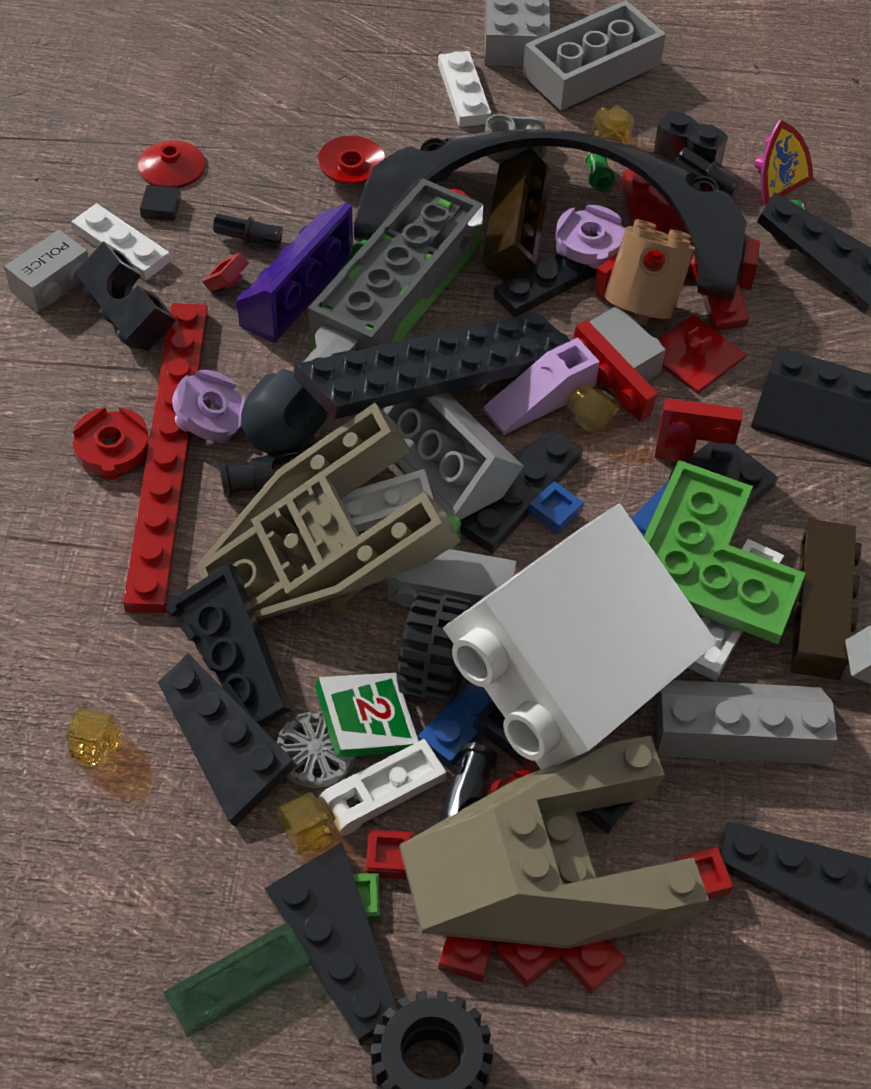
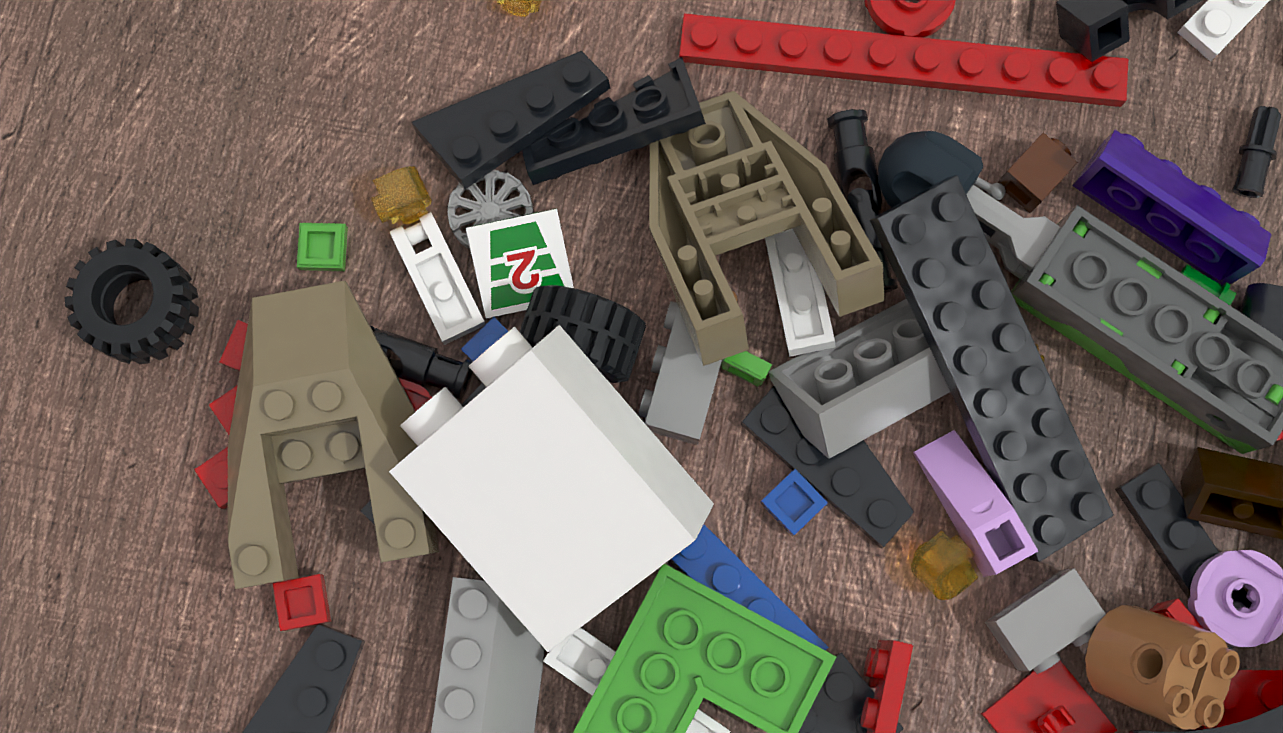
camera: 95 degrees right, 25 degrees up
(200, 420) = (974, 84): lavender plate -> none
(226, 273) = (1178, 123): red plate -> none
(237, 979) = (242, 128): clear green plate -> none
(267, 352) = (1038, 171): none -> reddish brown brick
(332, 926) = (288, 218): black wing -> none
(384, 853) = (367, 279): red tile -> none
(617, 374) = (1003, 597): red plate -> none

